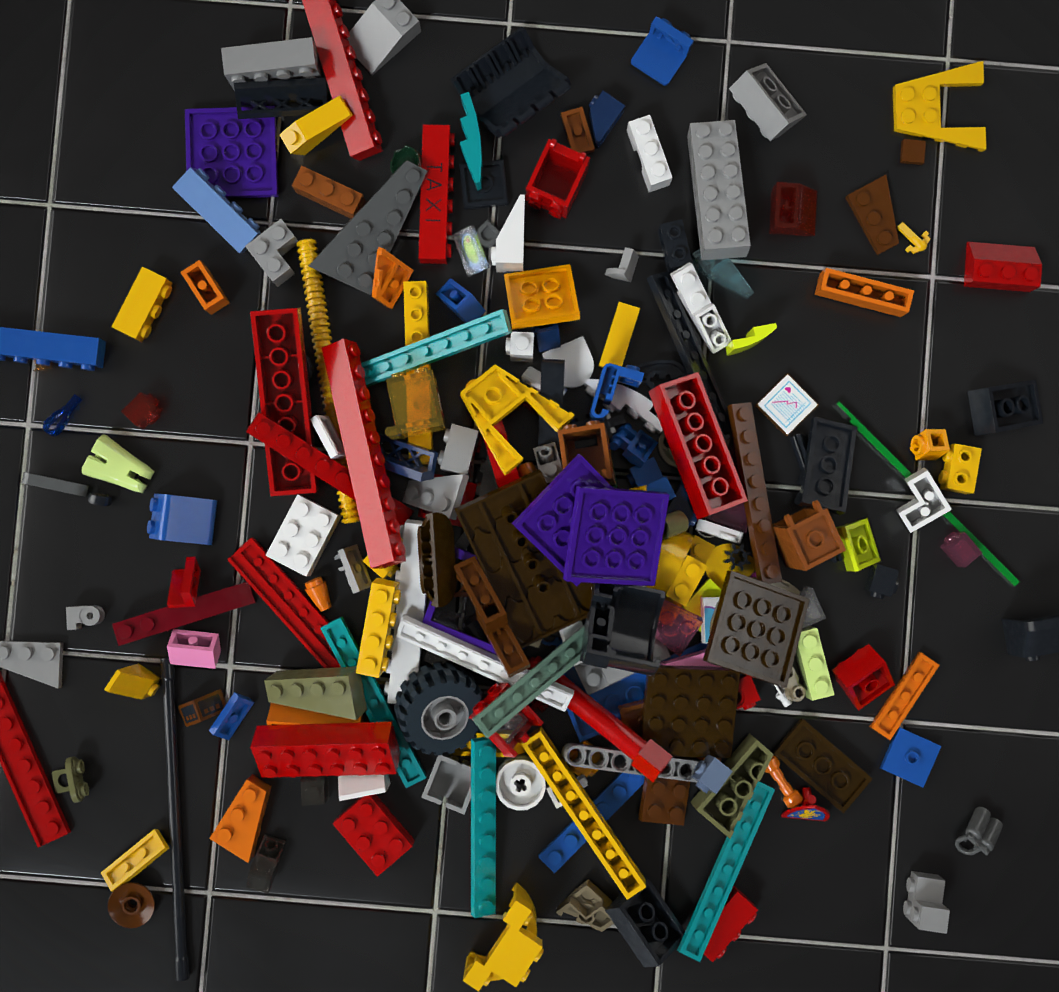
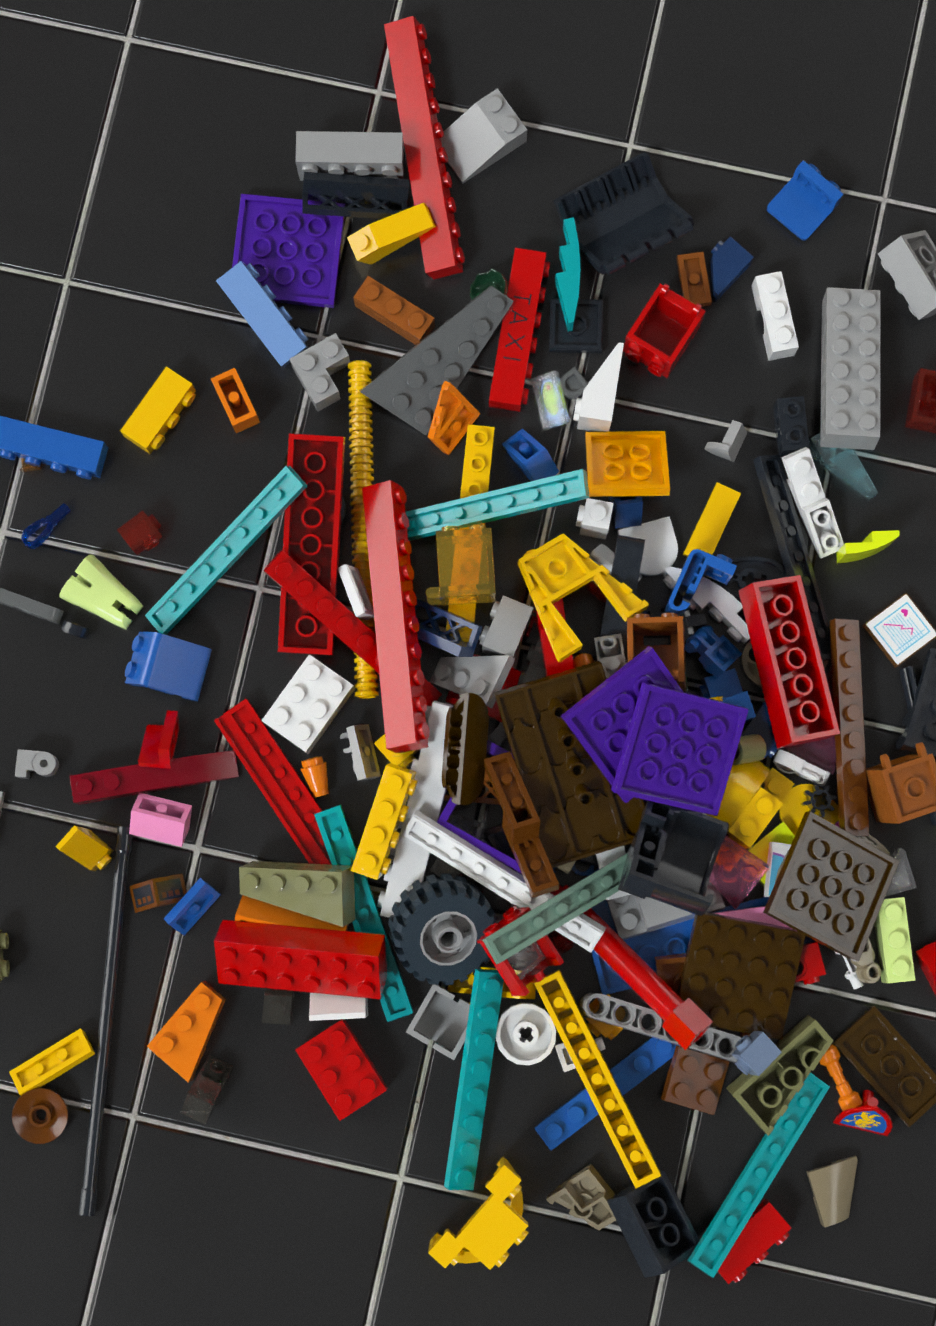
camera: 15 degrees right, 5 degrees down
(214, 416) = (226, 550): none -> teal plate
(788, 871) = (833, 1189): none -> dark tan slope

